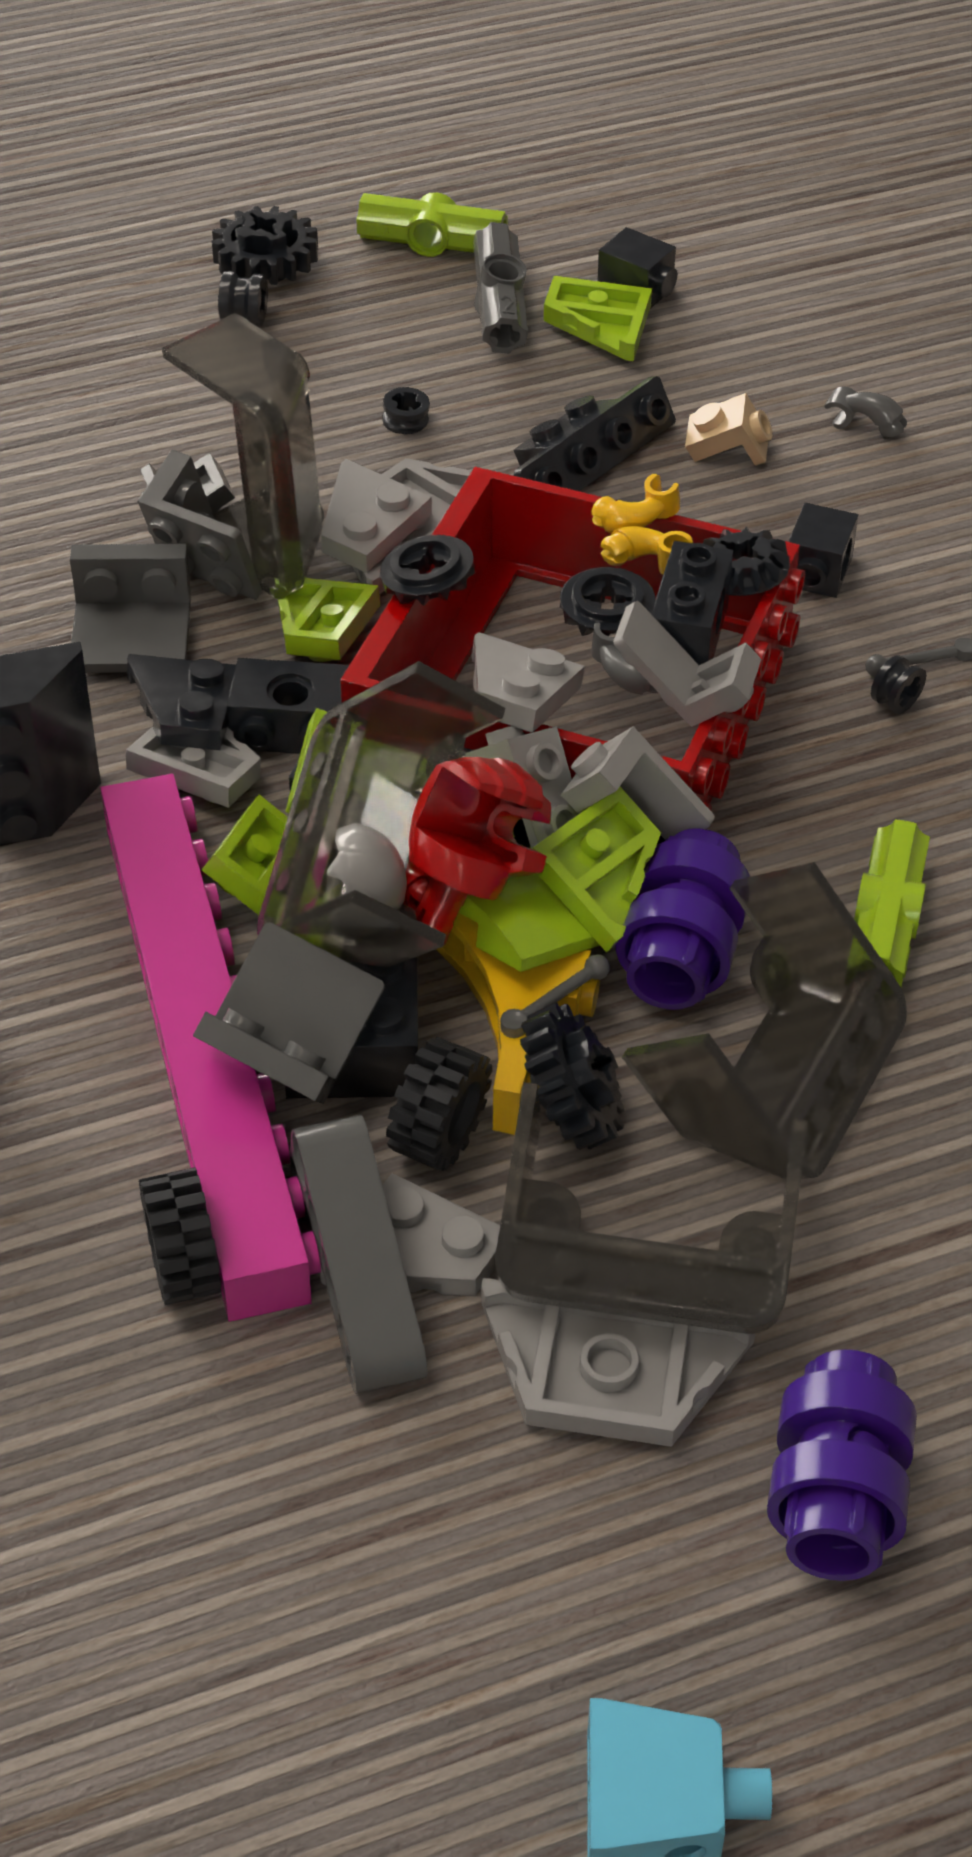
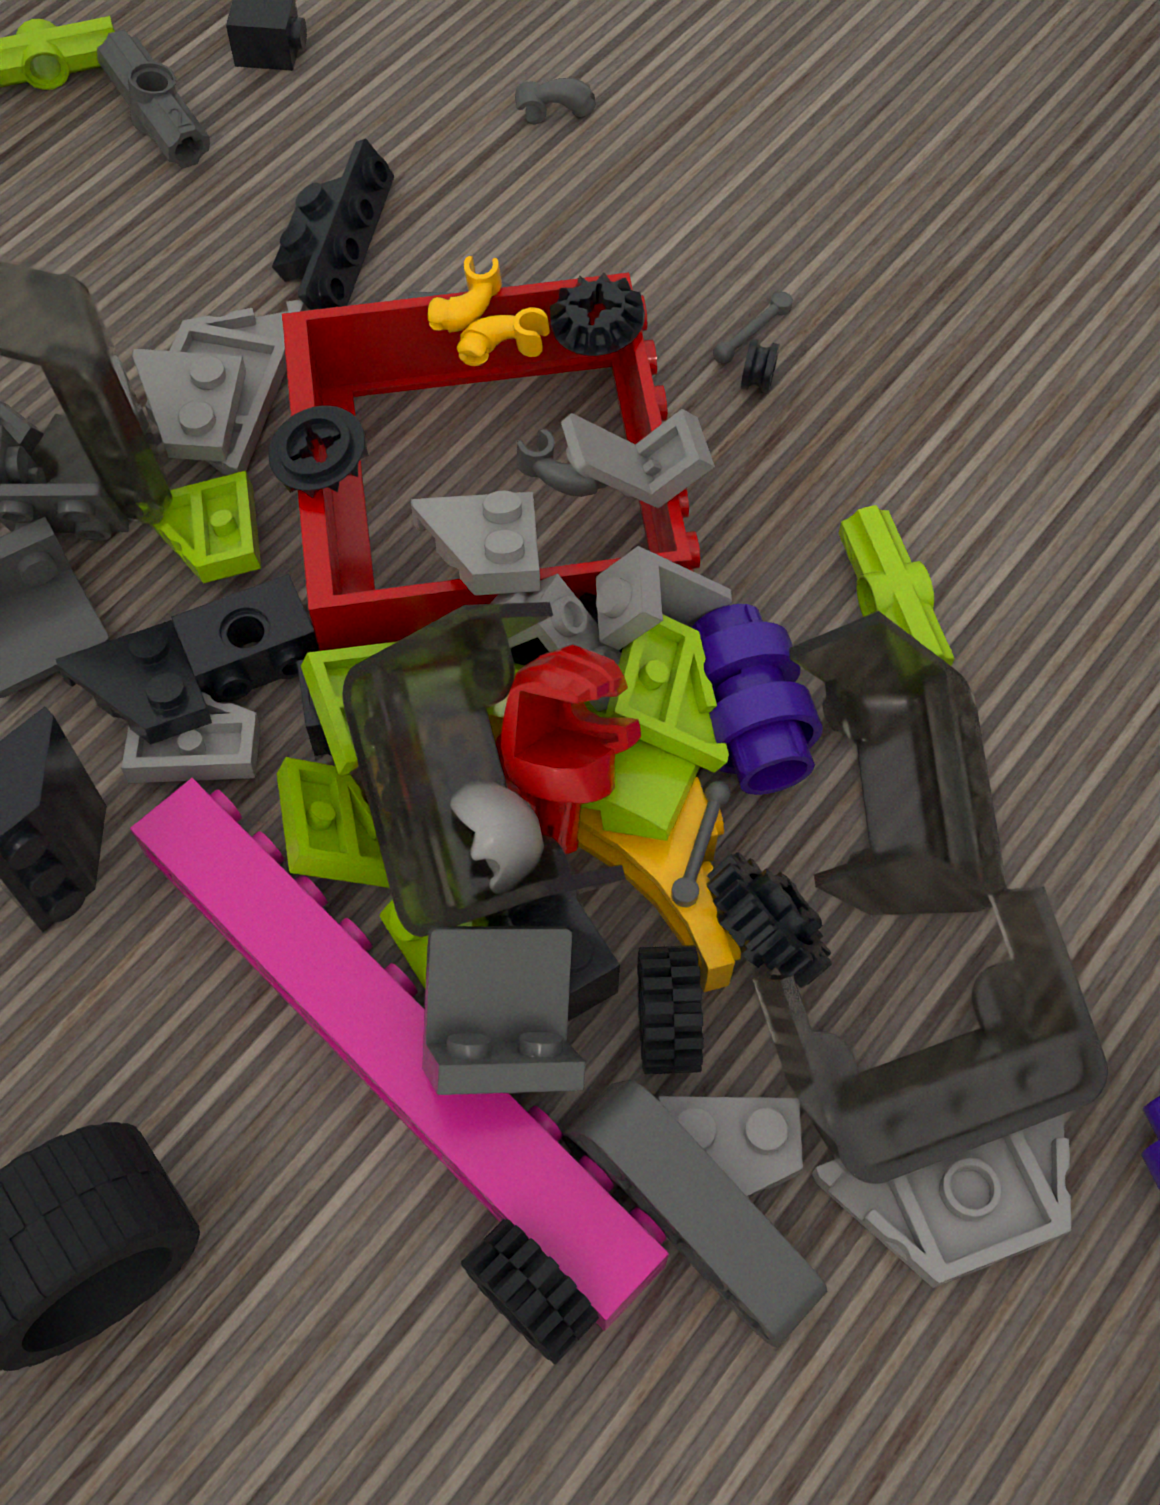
camera: 30 degrees left, 15 degrees up
(405, 410) = (139, 252): black bush -> none
(586, 591) = (515, 393): black gear -> none
(599, 313) = (258, 90): lime wing -> none
(695, 597) = (593, 376): black brick -> none
(726, 426) = (451, 165): tan bracket -> none
(825, 547) = (611, 246): black brick -> none

